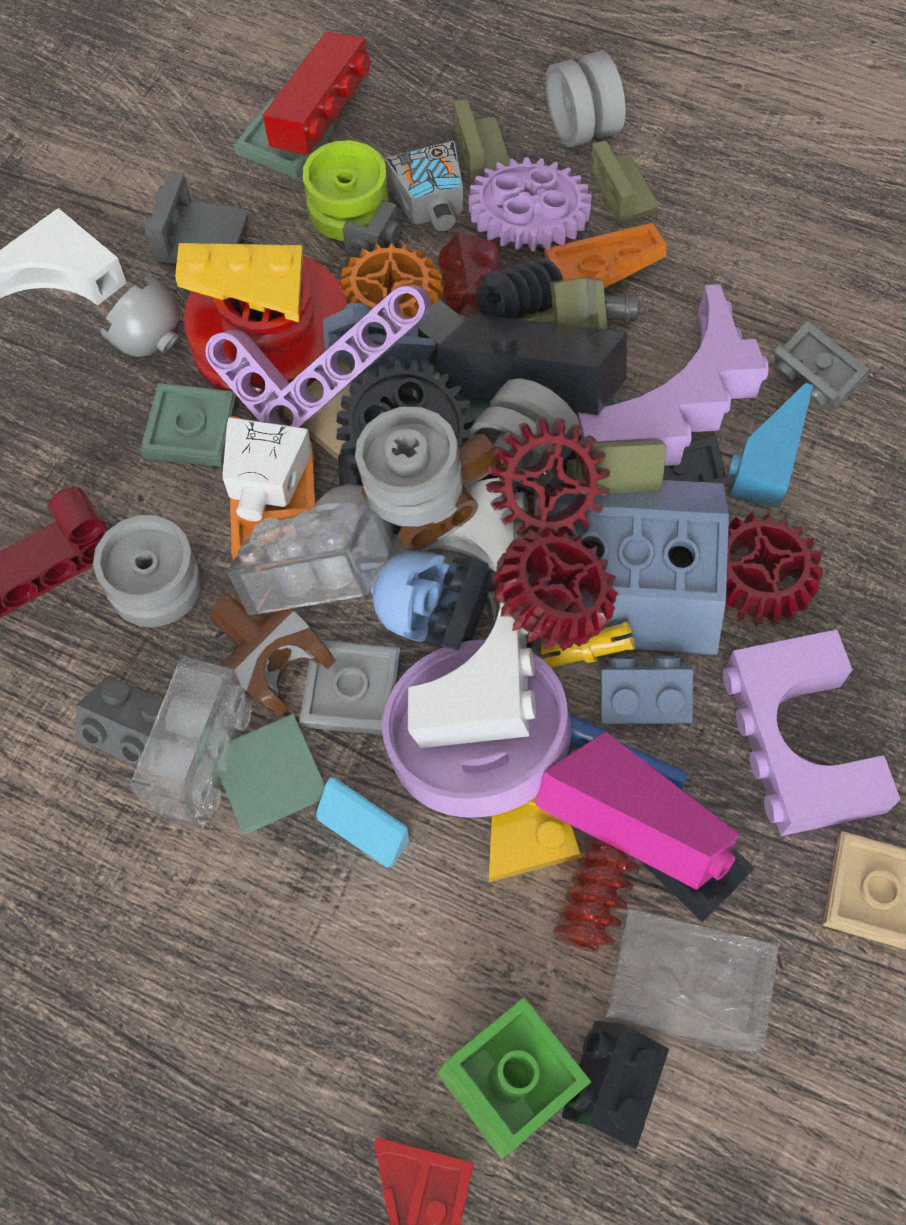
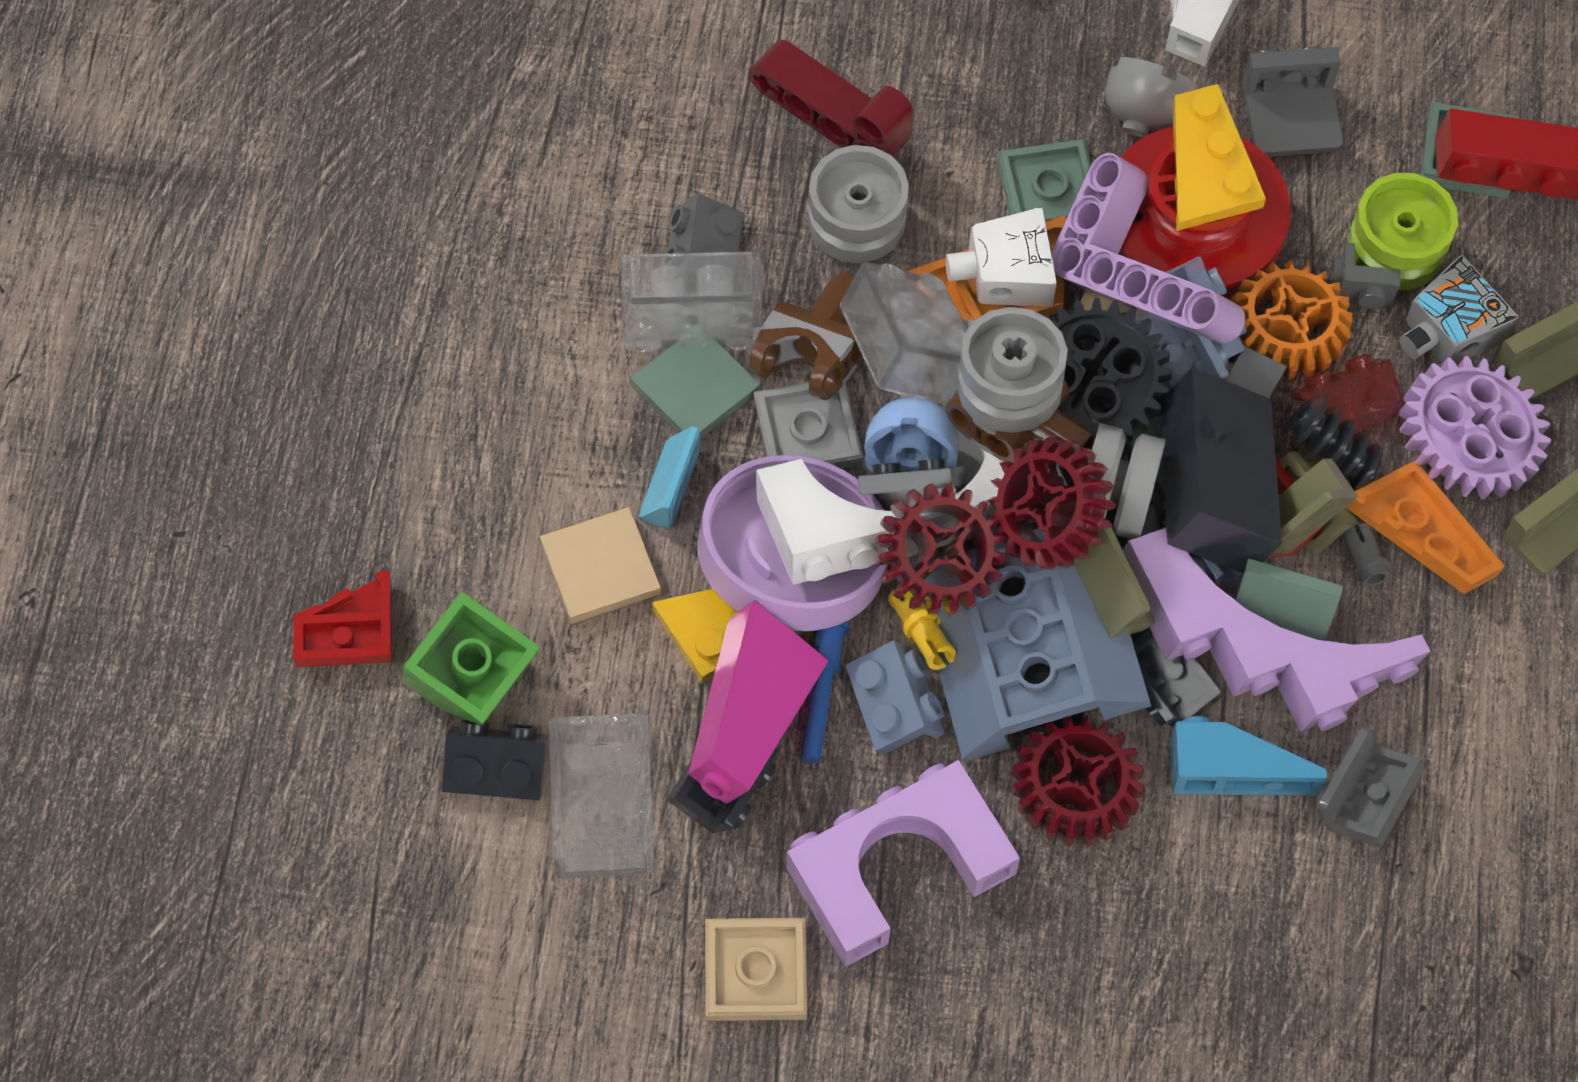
camera: 70 degrees right, 0 degrees up
(430, 918) = (600, 565): none -> tan tile
(595, 897) = (660, 697): clear red piece -> none
(658, 356) = (1289, 598): none -> sand green tile

